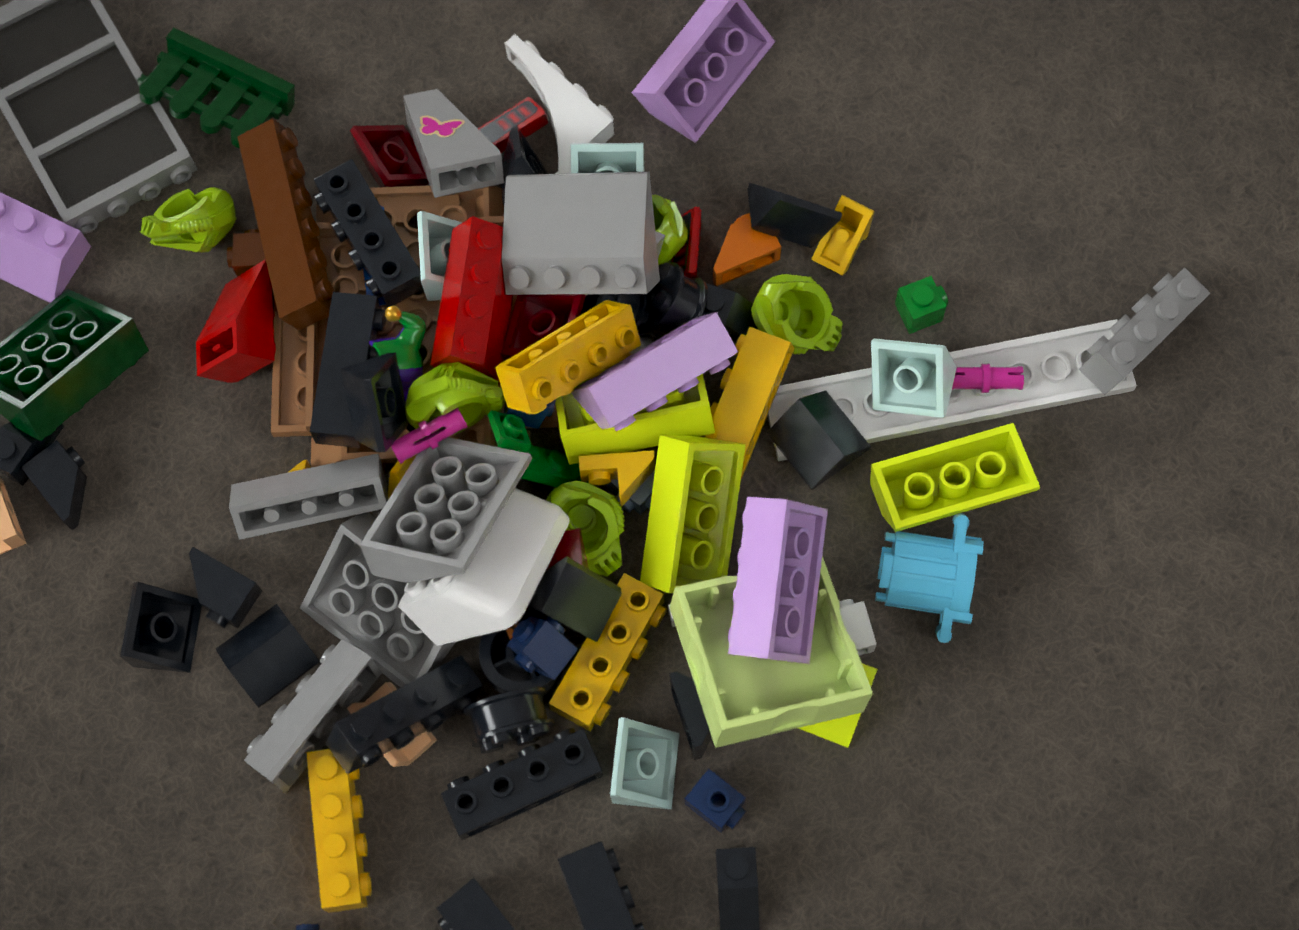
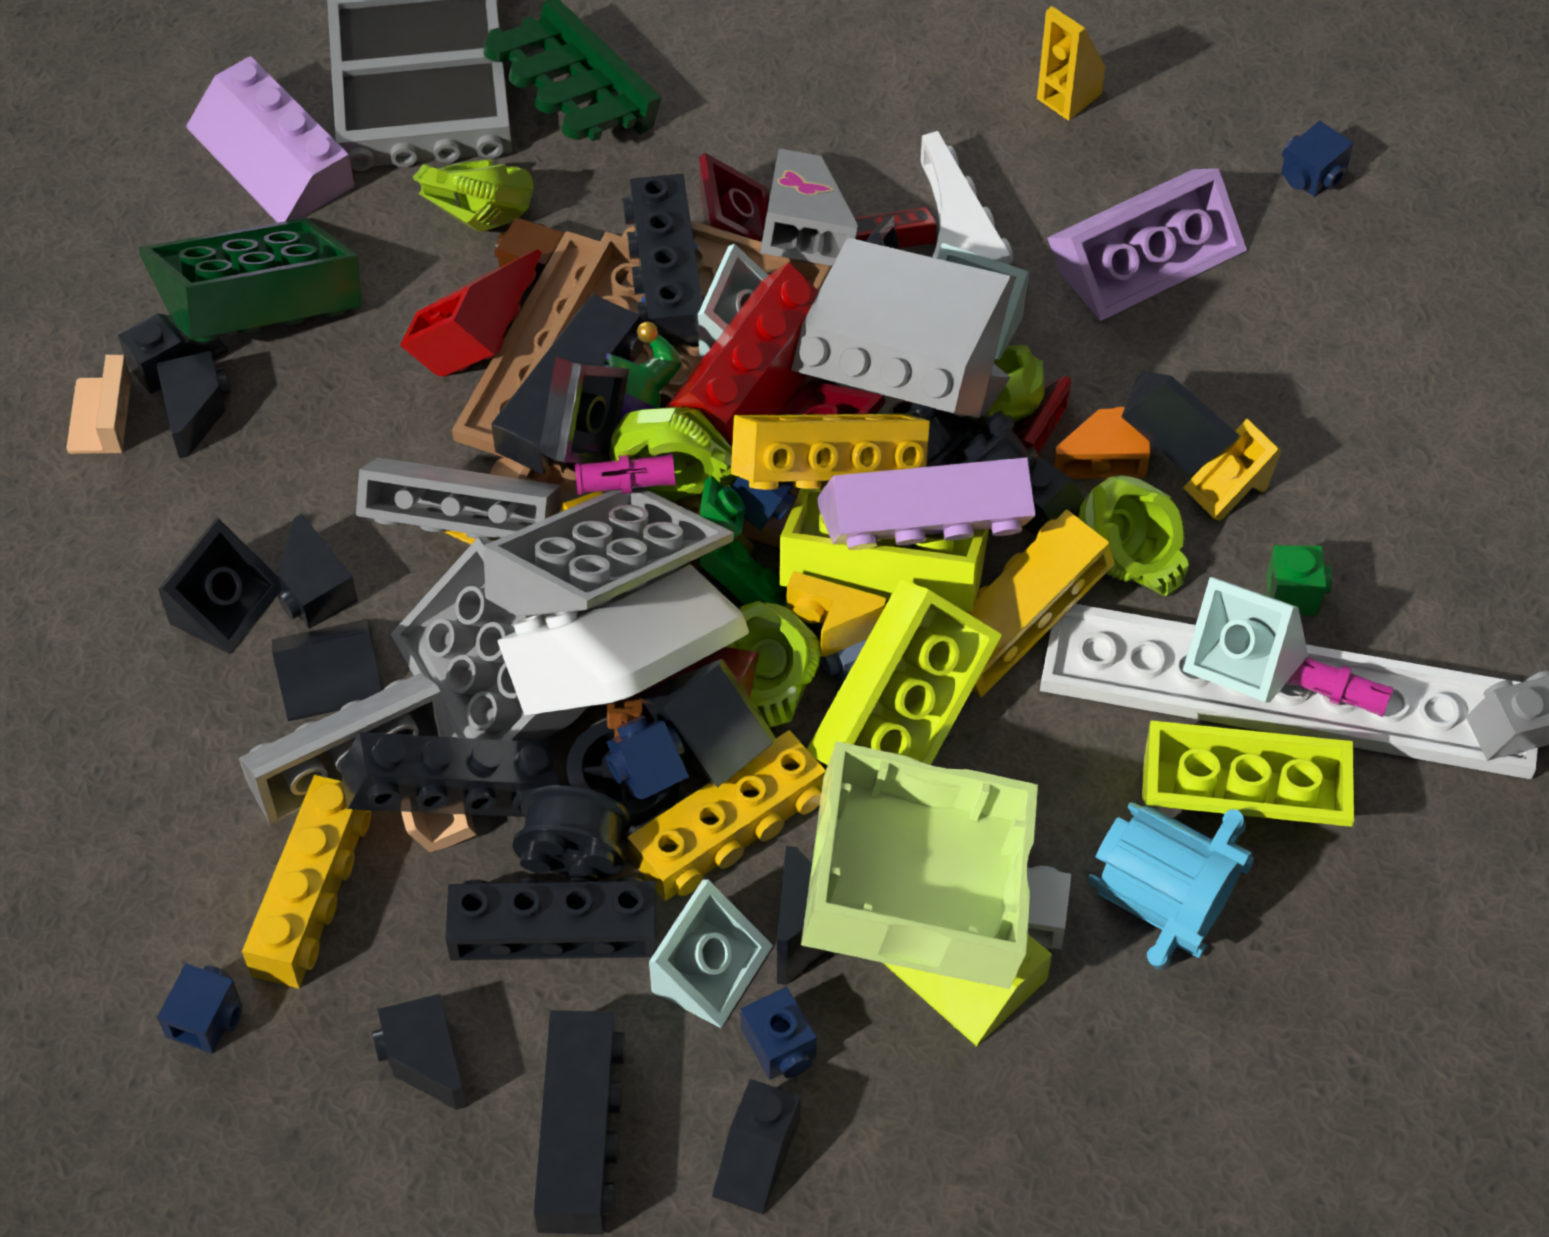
camera: 20 degrees right, 15 degrees down
(286, 224) = (577, 219): reddish brown brick -> none
(777, 580) = (967, 781): lavender slope -> none
(817, 438) = (1098, 673): black slope -> none

